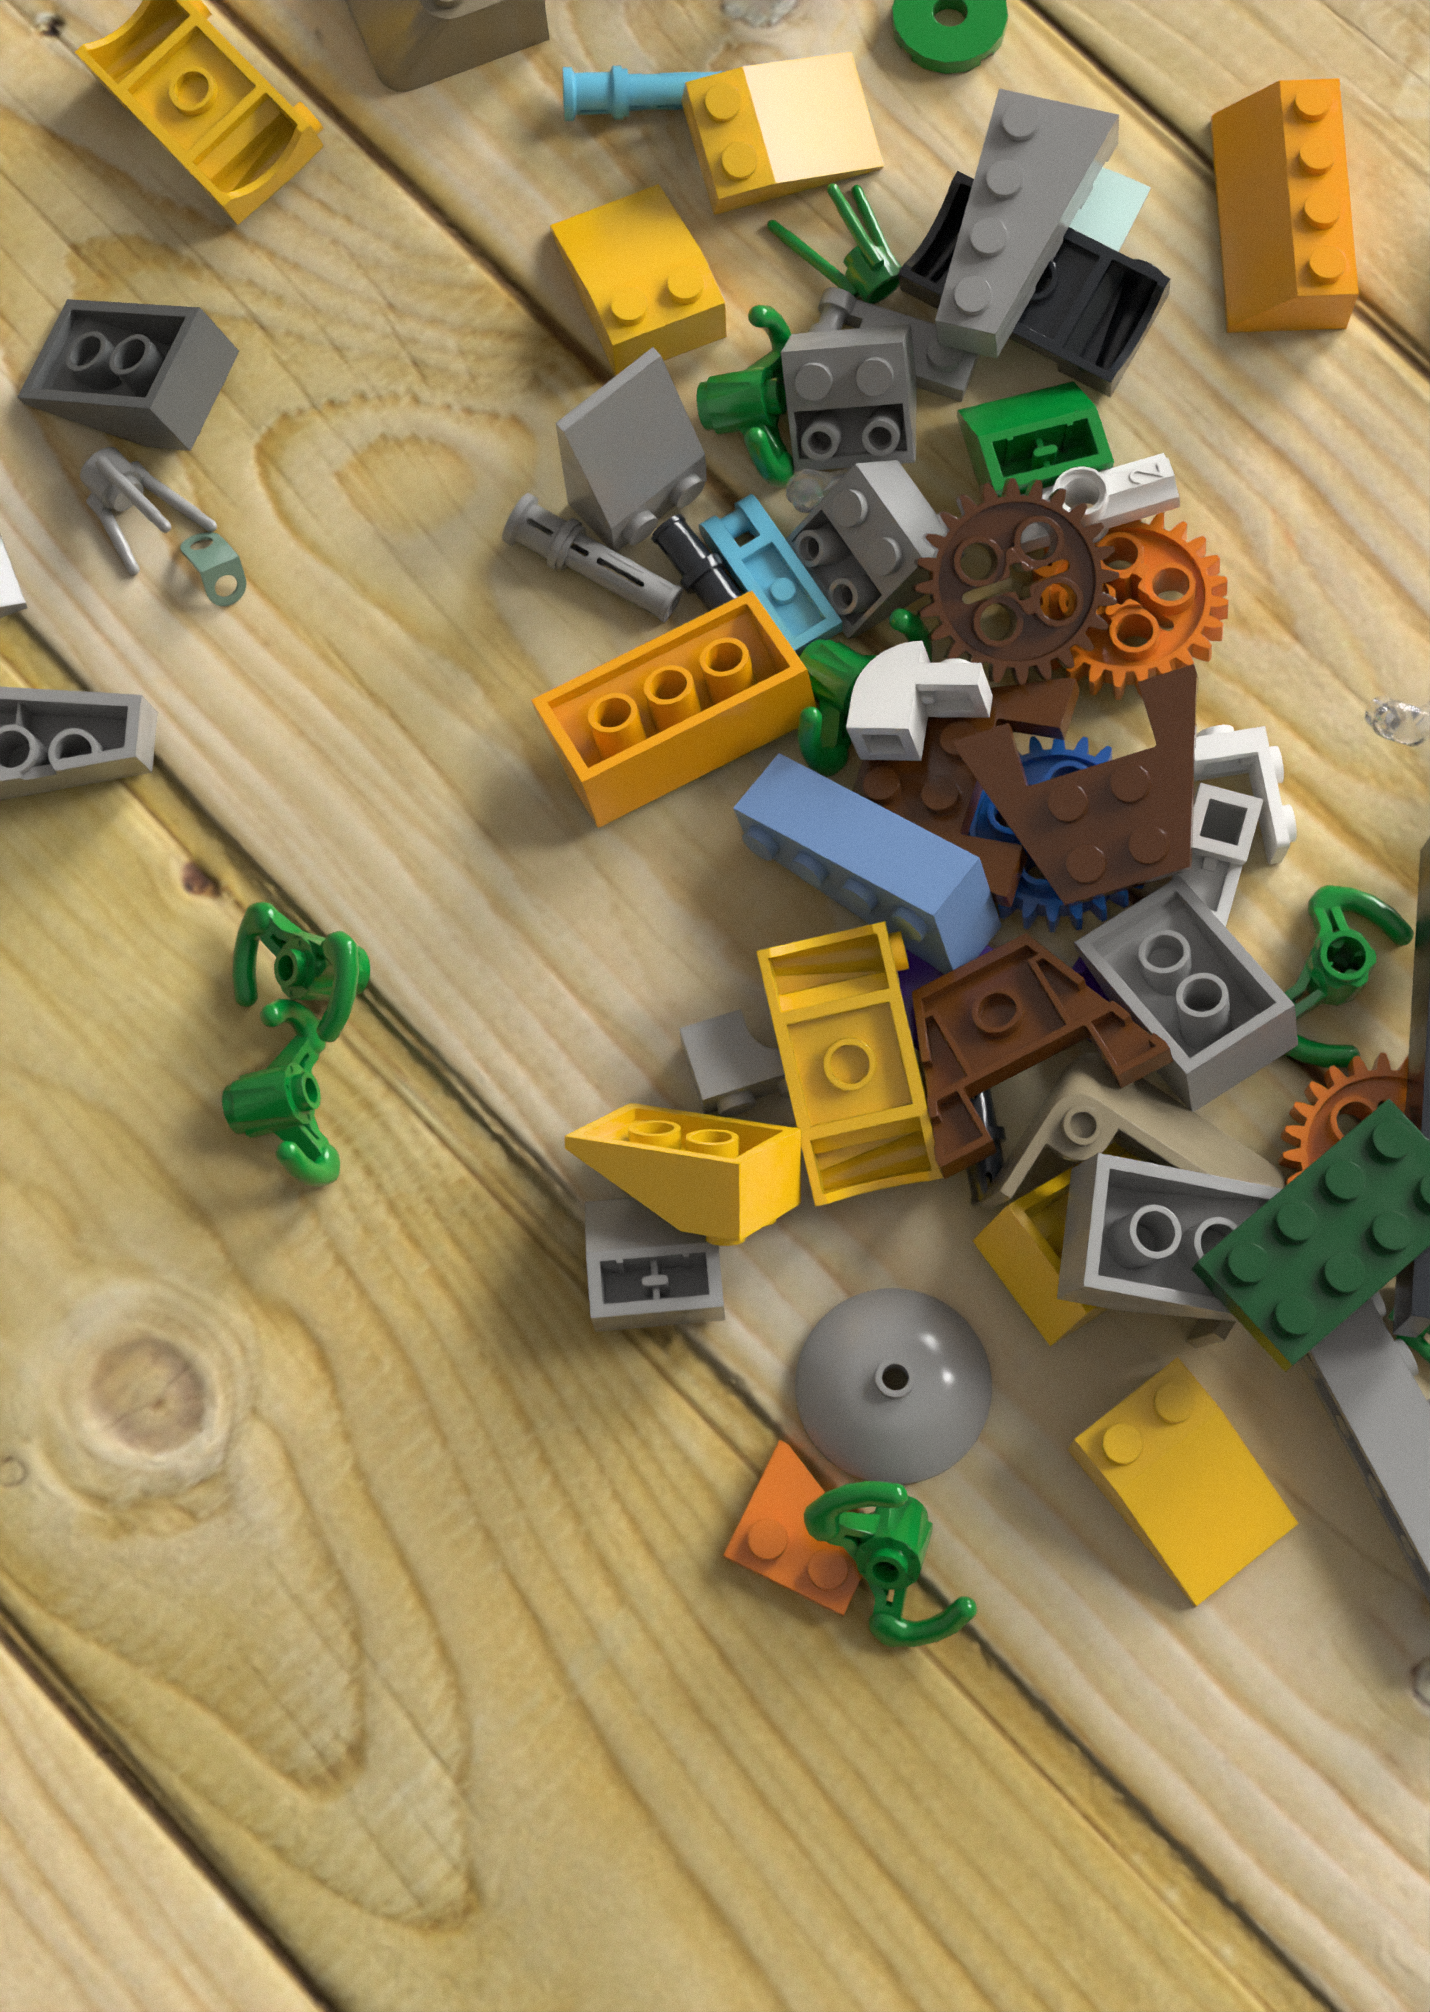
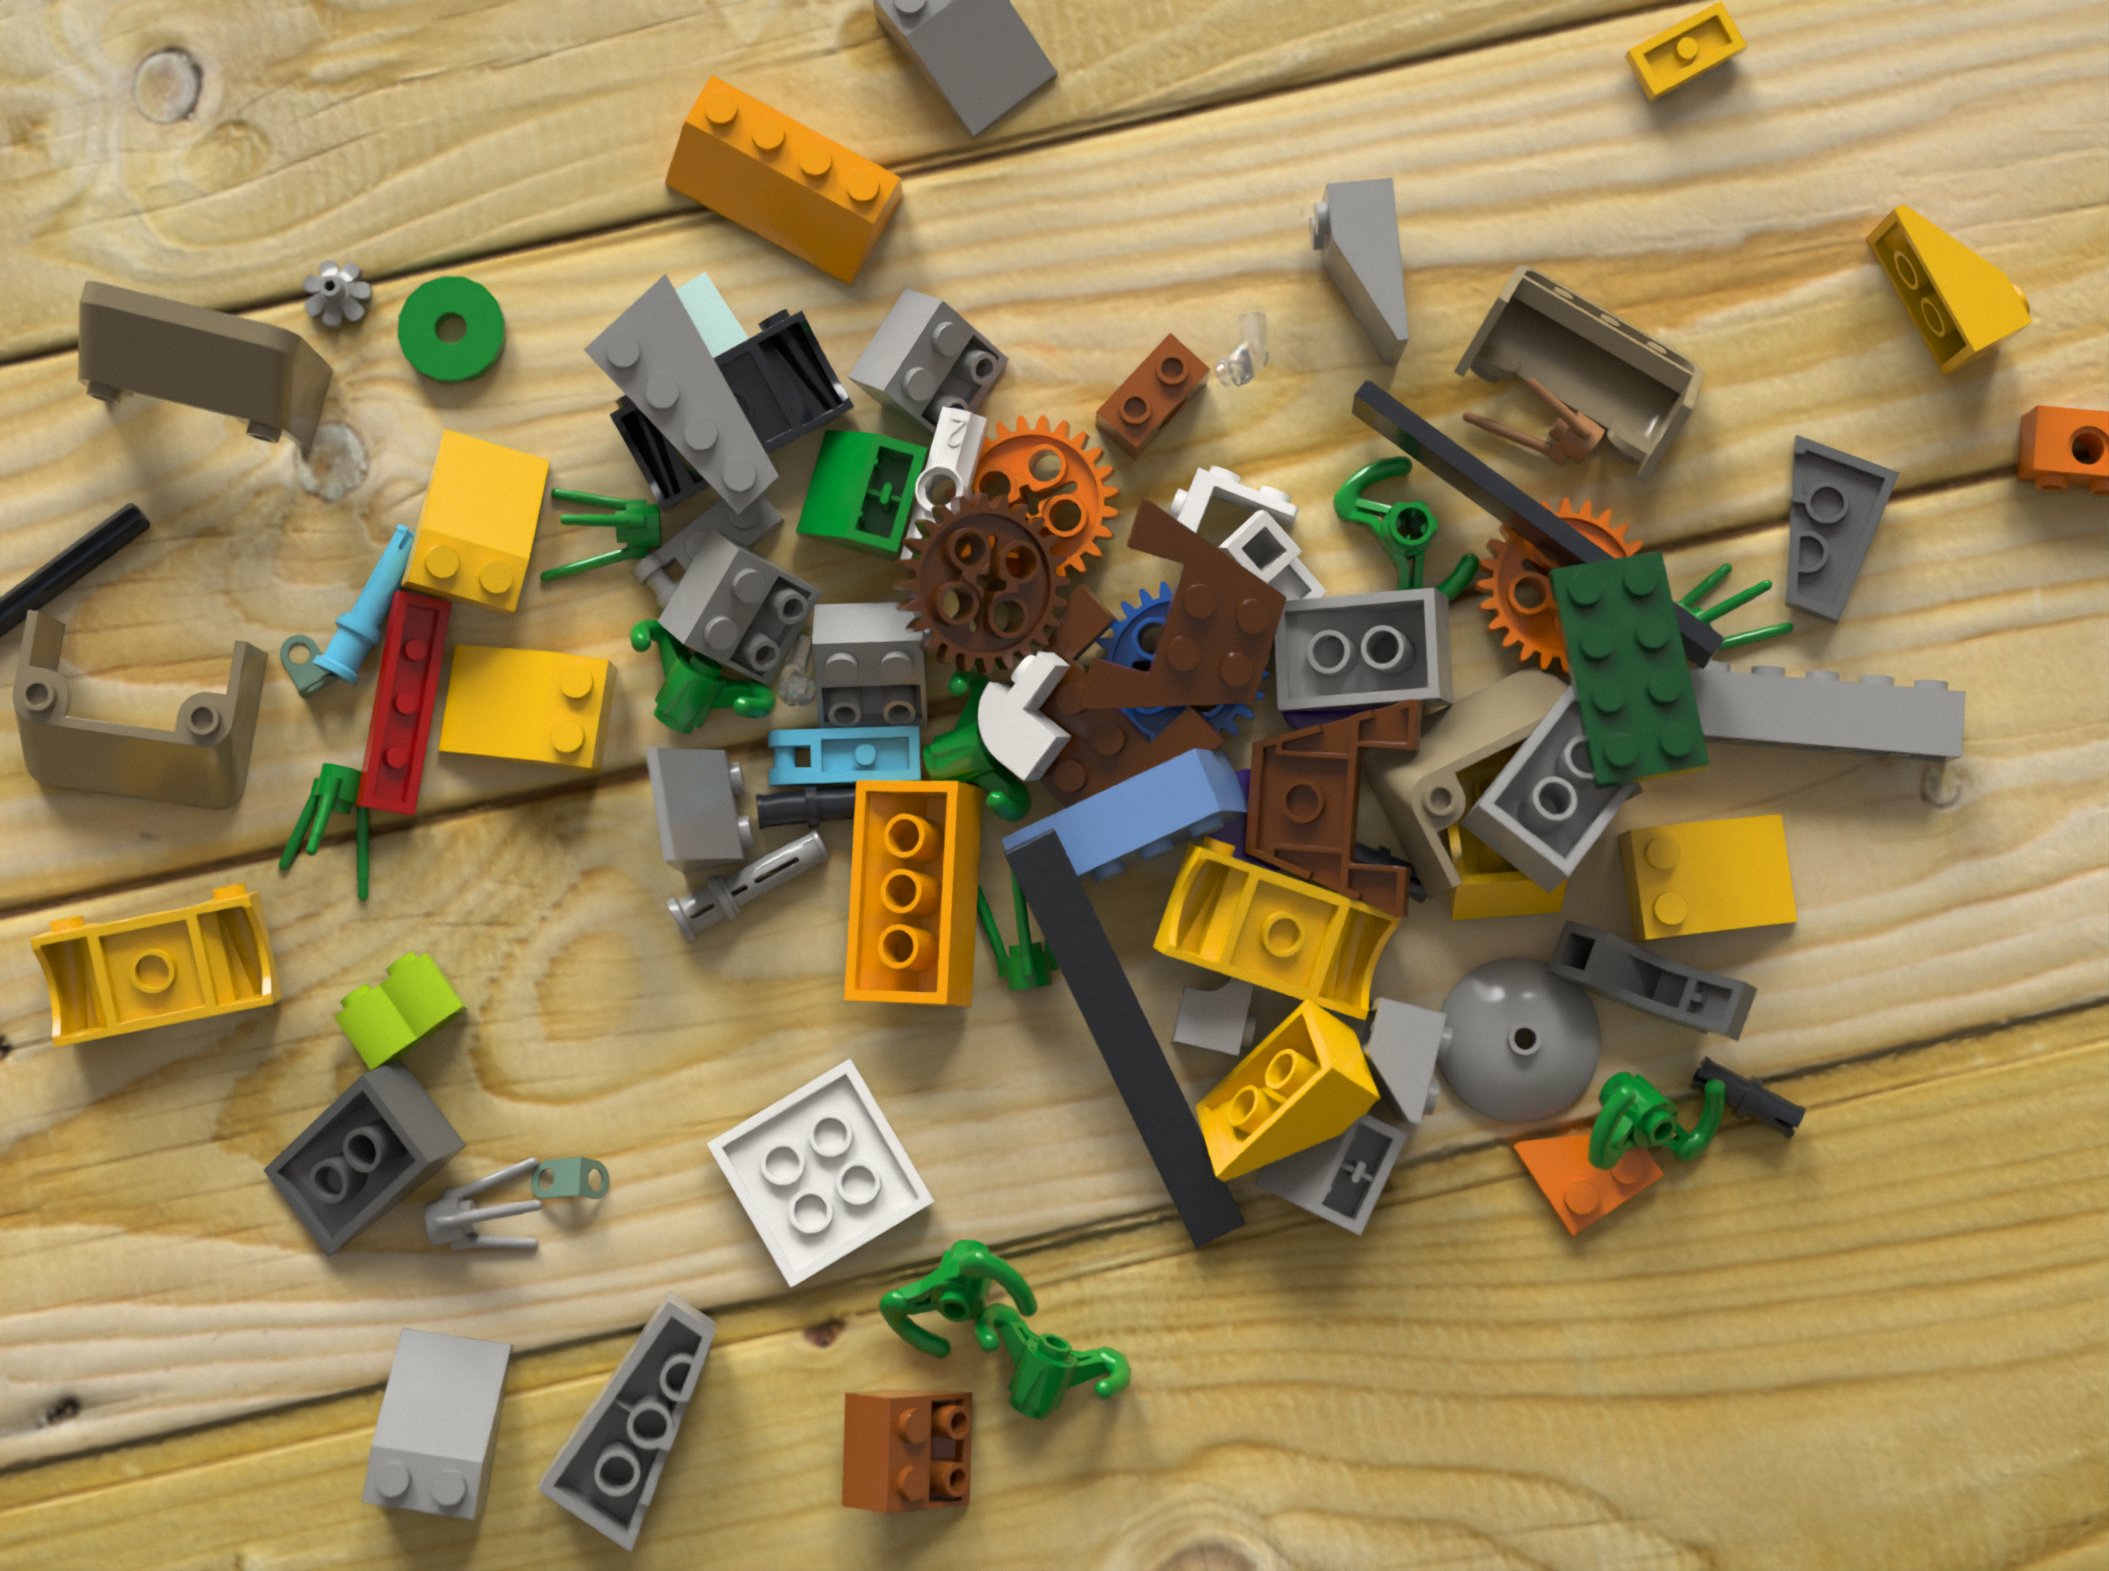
camera: 65 degrees left, 10 degrees up
(126, 1016) = (906, 1450): none -> dark orange slope
(285, 325) = (401, 1010): none -> lime brick
(352, 783) = (820, 1172): none -> white plate
(455, 160) = (335, 793): none -> green plant
(548, 81) = (306, 675): none -> sand green piece
(573, 166) = (403, 703): none -> red plate
(654, 976) = (1123, 1036): none -> black tile
(671, 852) = (1027, 963): none -> green plant
(803, 1260) = (1401, 1053): none -> light grey slope
(979, 1661) = (1750, 1098): none -> black pin
(1033, 1472) = (1651, 982): none -> dark grey arch
(1205, 426) = (927, 361): none -> light grey slope
(1307, 651) = (1152, 396): none -> dark orange brick

